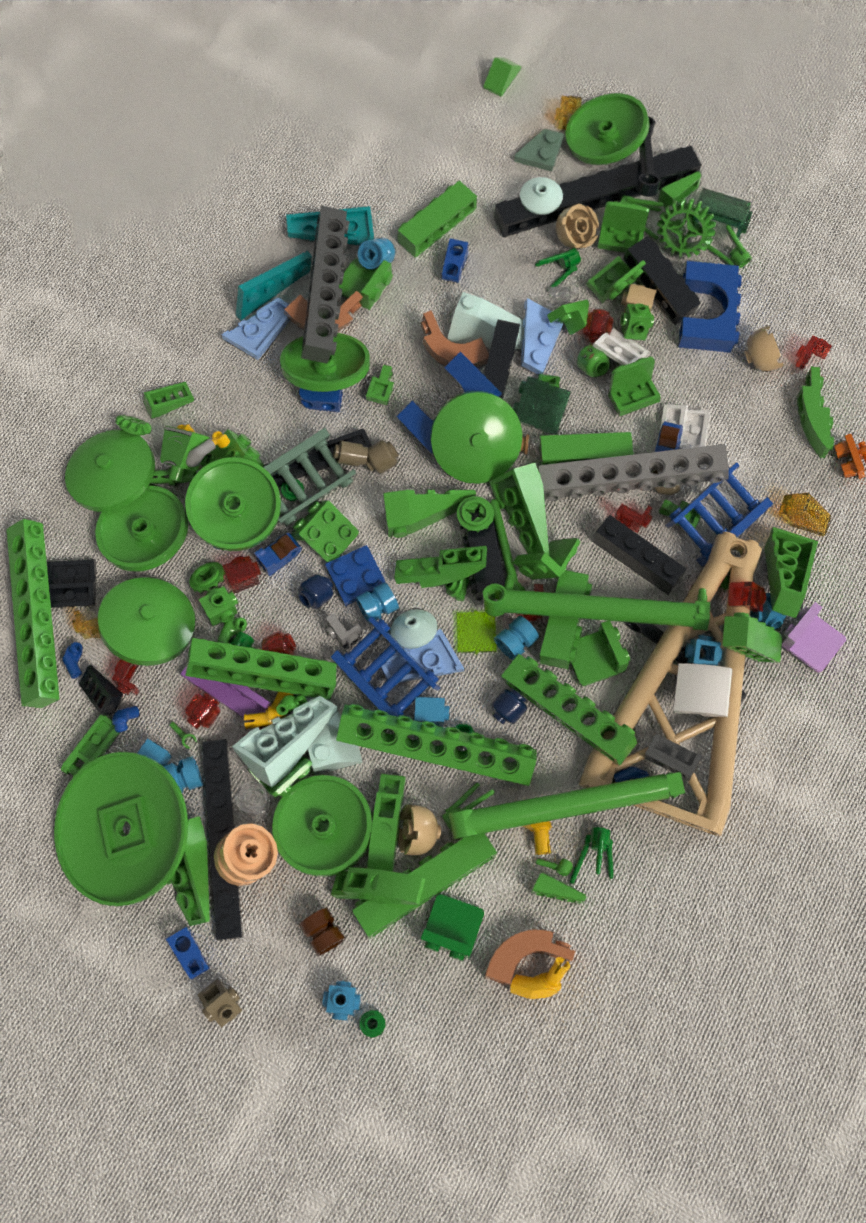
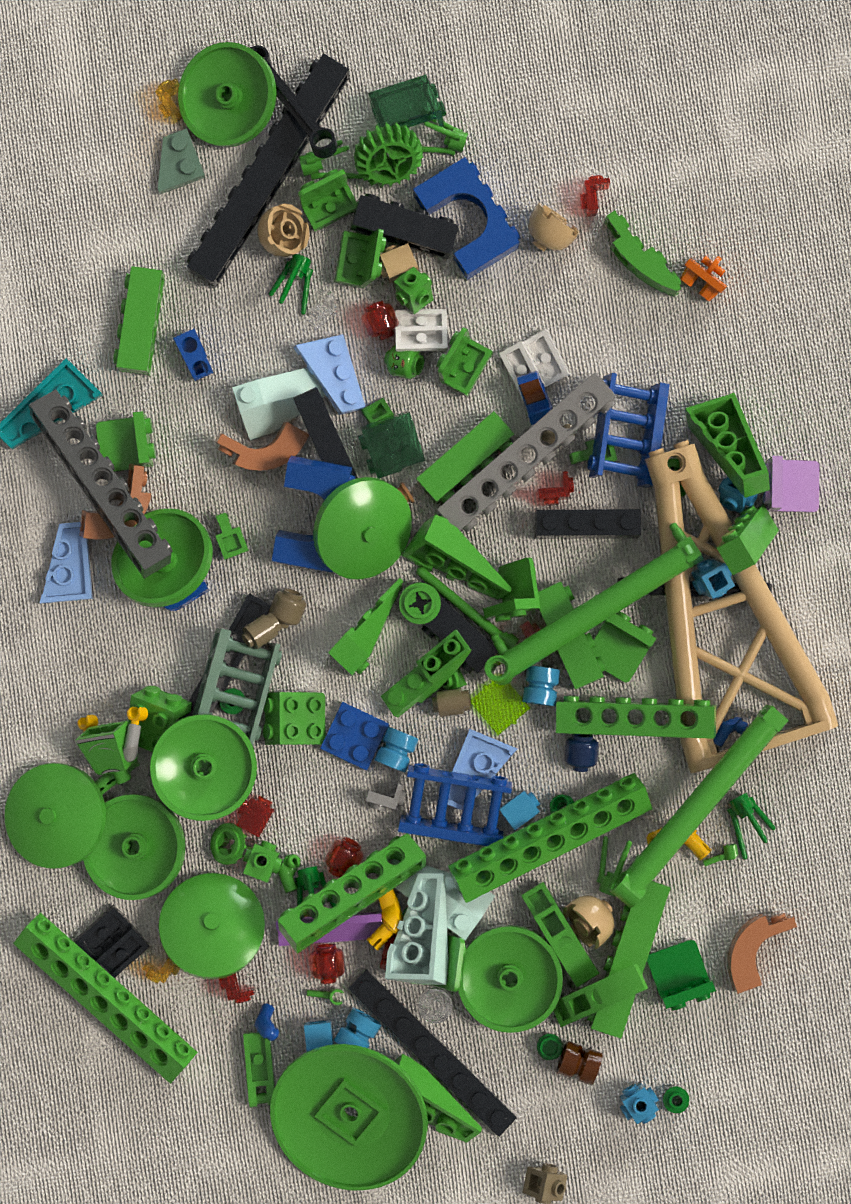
camera: 40 degrees left, 15 degrees up
(71, 659) = (172, 1007): blue arm -> none
(113, 696) = (231, 1016): black slope -> none
(133, 425) = (38, 756): bright green gear -> none
(162, 408) = (35, 699): bright green slope -> none
(188, 952) = (484, 1165): blue leg -> none
(259, 858) = (468, 1054): light nougat wheel -> none
(266, 286) = (42, 515): teal wing -> none
(278, 554) = (271, 771): blue leg -> none
(289, 703) = (399, 899): bright green arm -> none
(310, 903) = (549, 1046): none -> green plate
(315, 591) = (334, 781): dark blue head -> none
(374, 251) = (116, 407): dark azure wheel -> none
(414, 628) = (456, 749): light aqua dish -> none
(443, 601) = (451, 702): none -> dark tan brick
(501, 75) = (72, 105): bright green slope -> none
(541, 202) = (224, 235): light aqua dish -> none
(542, 985) = (786, 962): yellow arm -> none
(552, 888) = (735, 878): bright green slope -> none
(572, 315) = (349, 329): bright green slope -> none
(672, 756) = (754, 692): dark grey hinge -> none
(679, 189) = (344, 116): bright green slope -> none
(703, 690) = (737, 615): white slope -> none
(747, 595) = (713, 500): clear red bracket -> none
(805, 513) = (702, 368): clear yellow slope -> none

